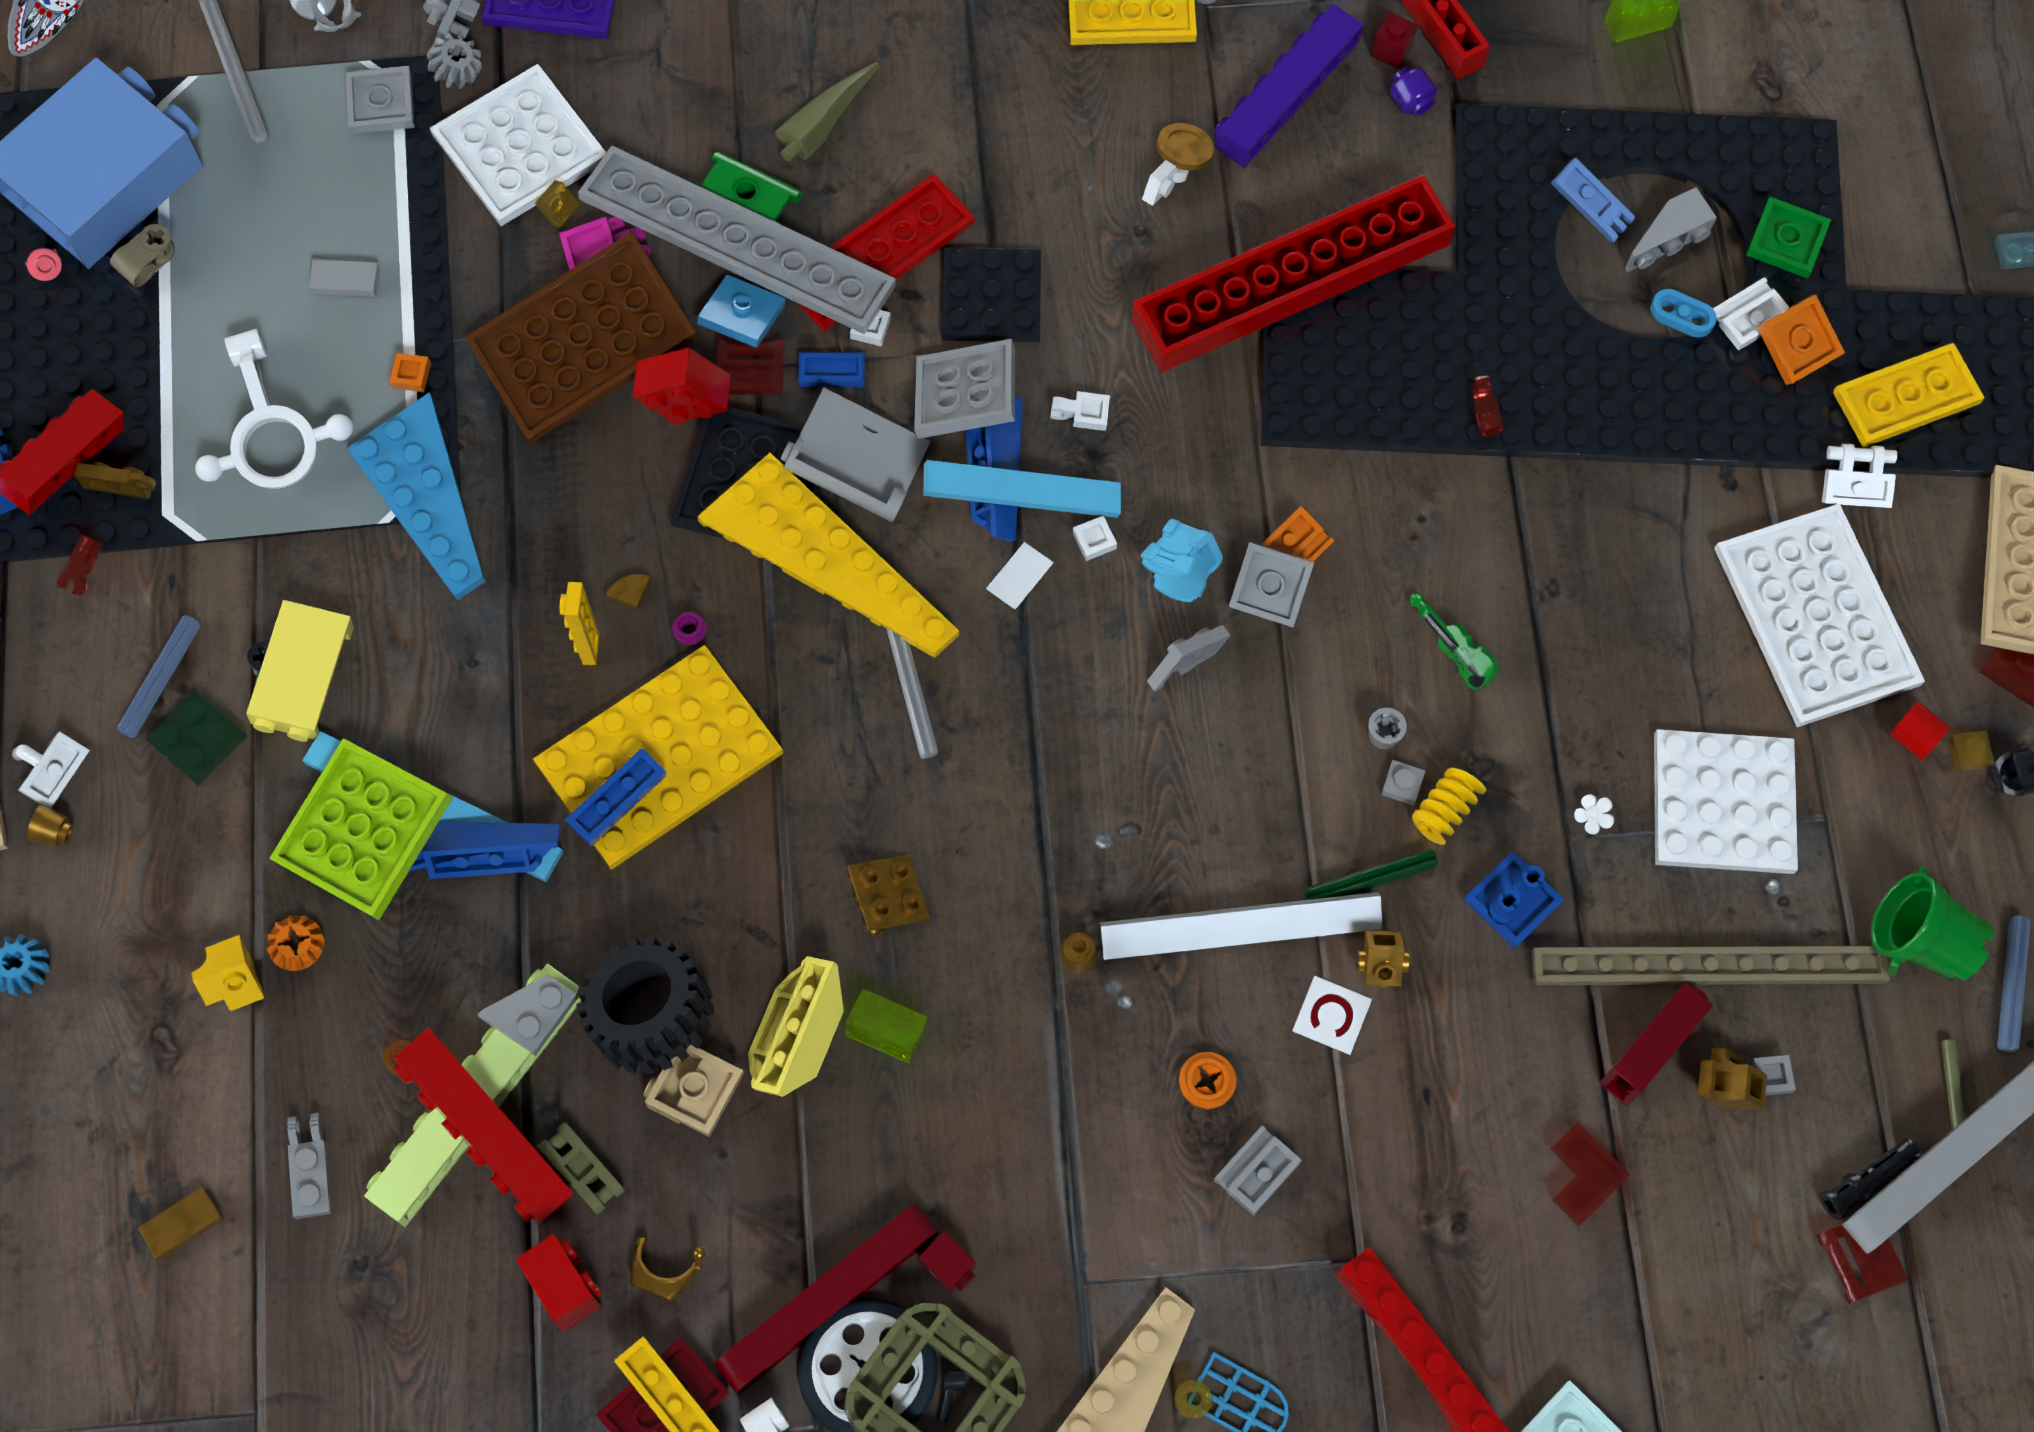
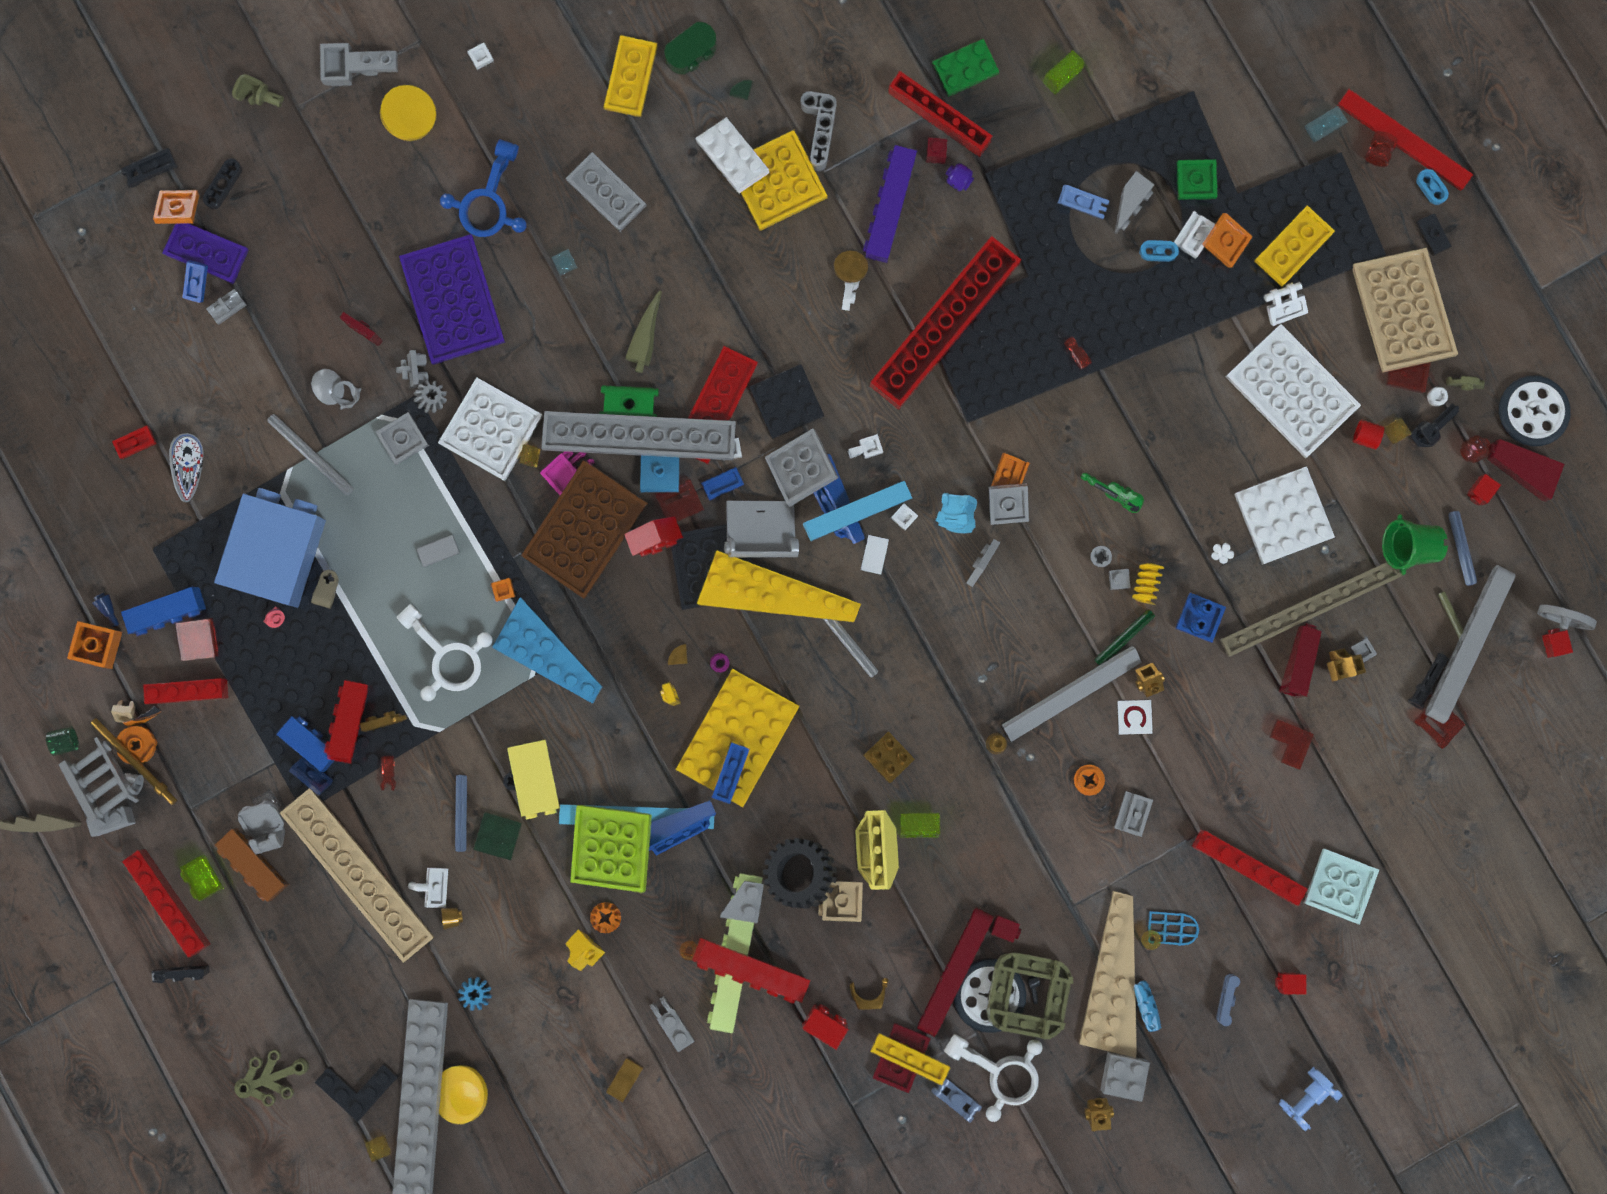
camera: 25 degrees left, 15 degrees up
(580, 1168) = (804, 964): olive plate -> none

